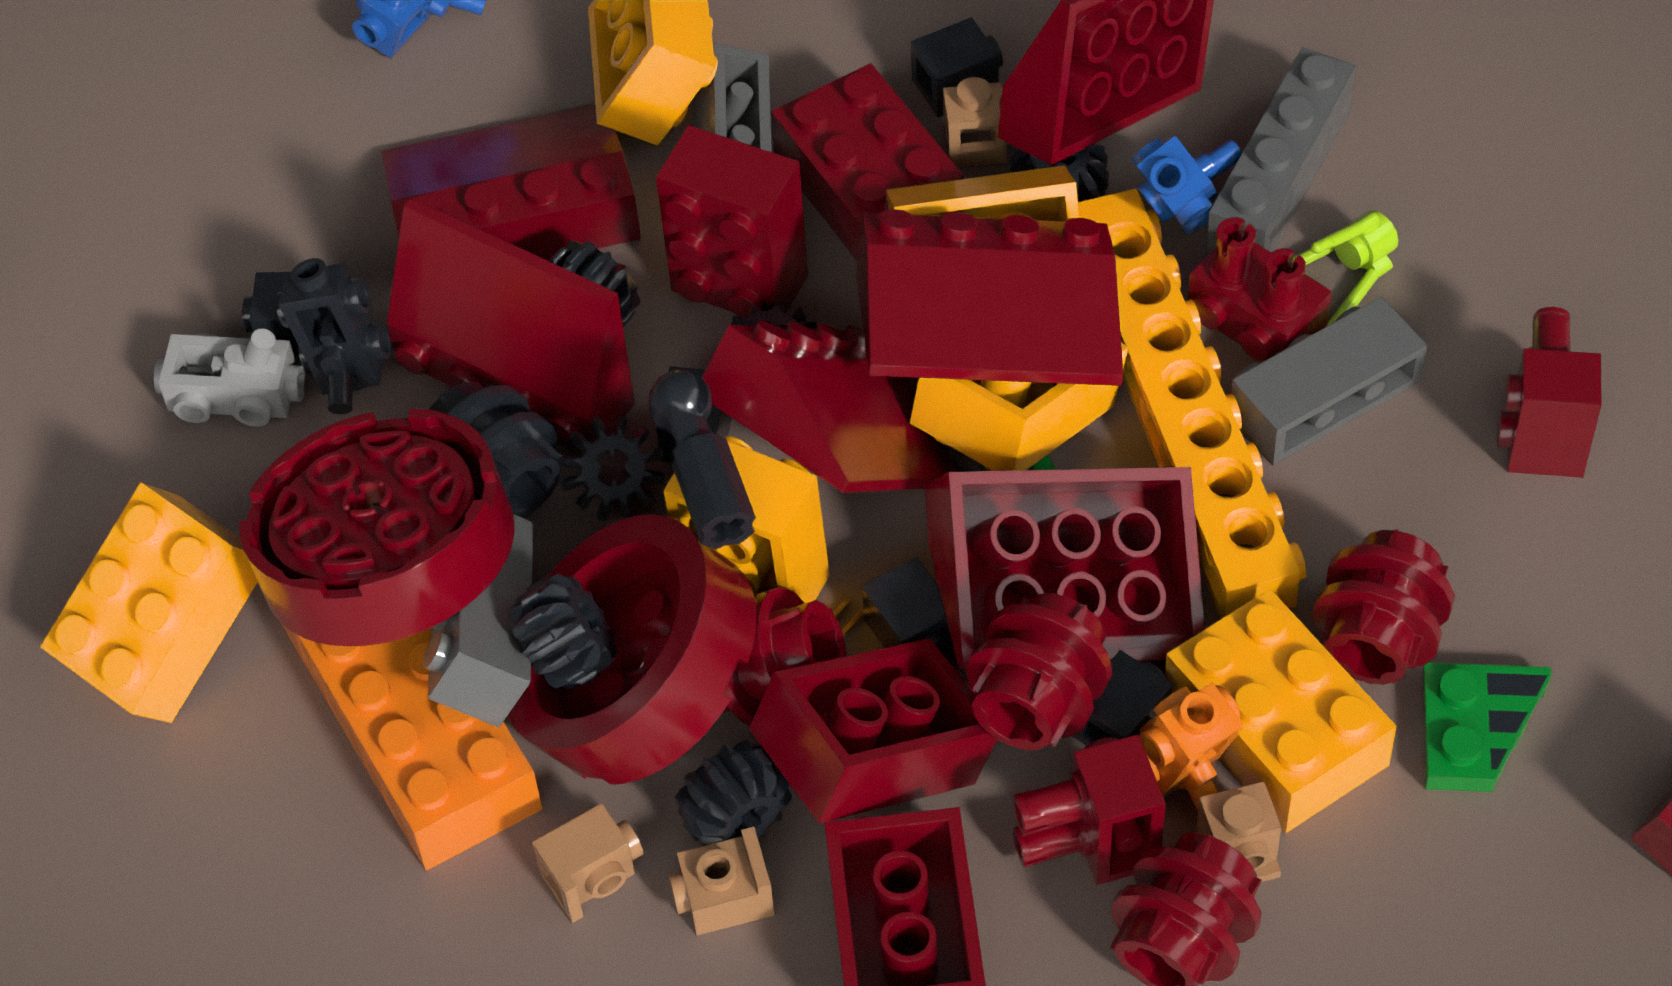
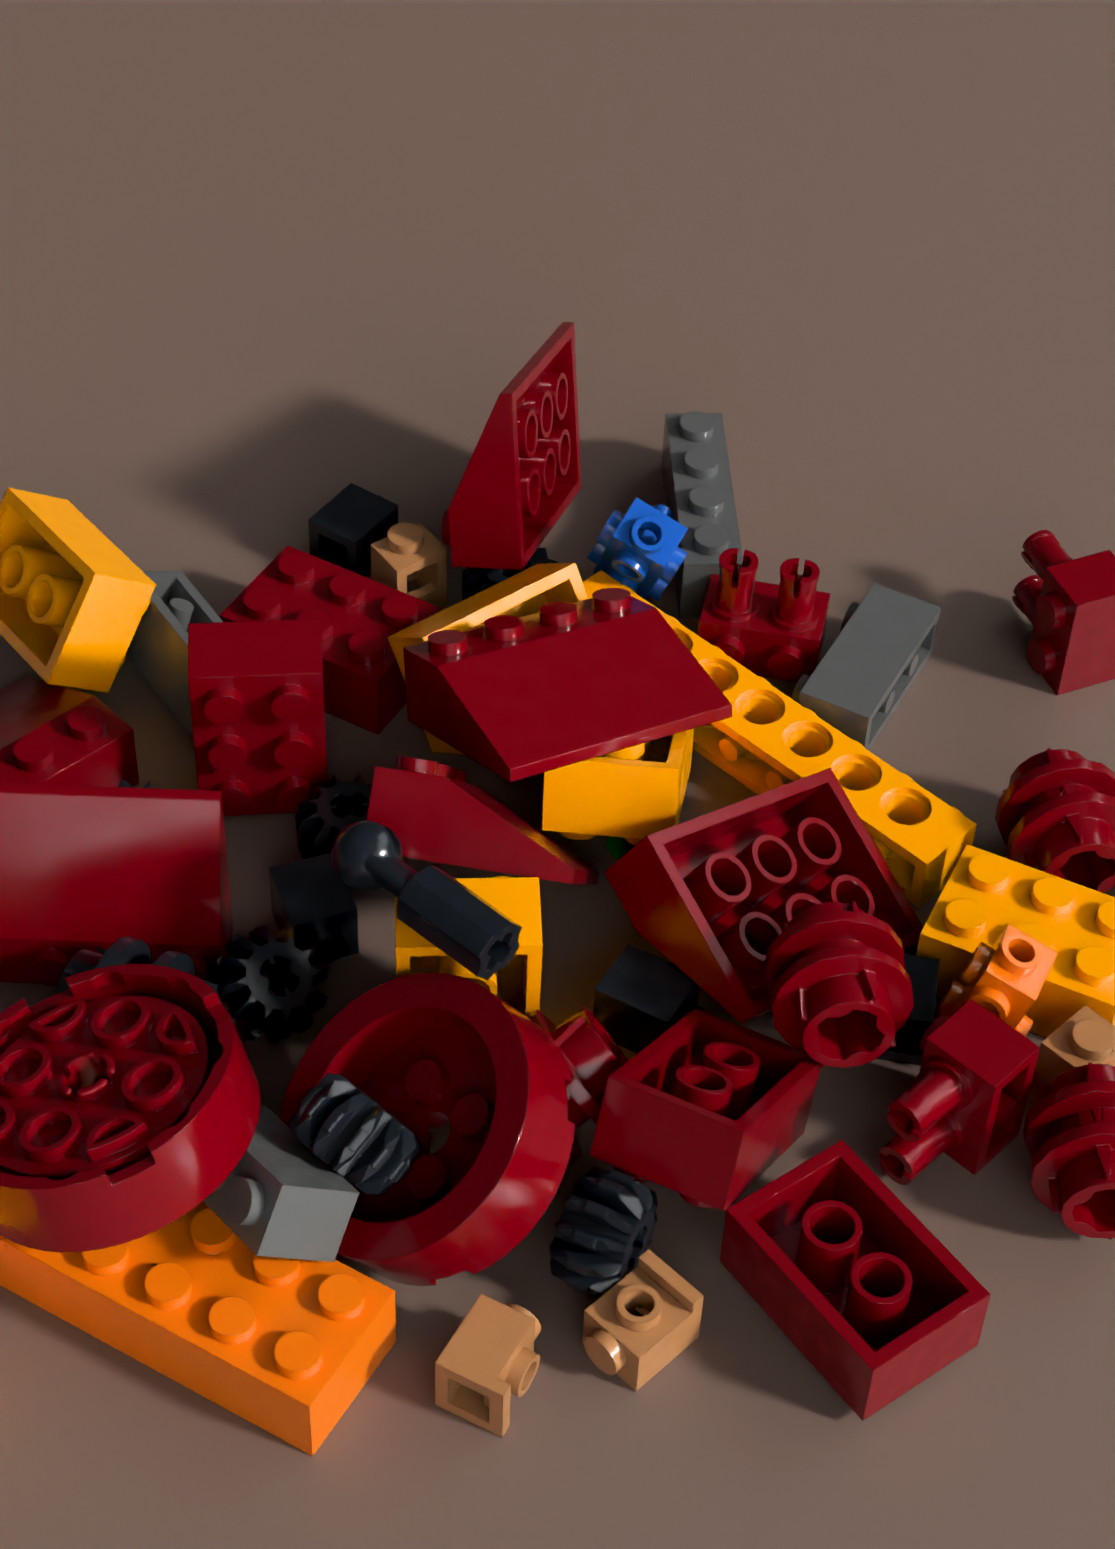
camera: 35 degrees left, 10 degrees down
(1359, 245) = (822, 546): lime plant -> none

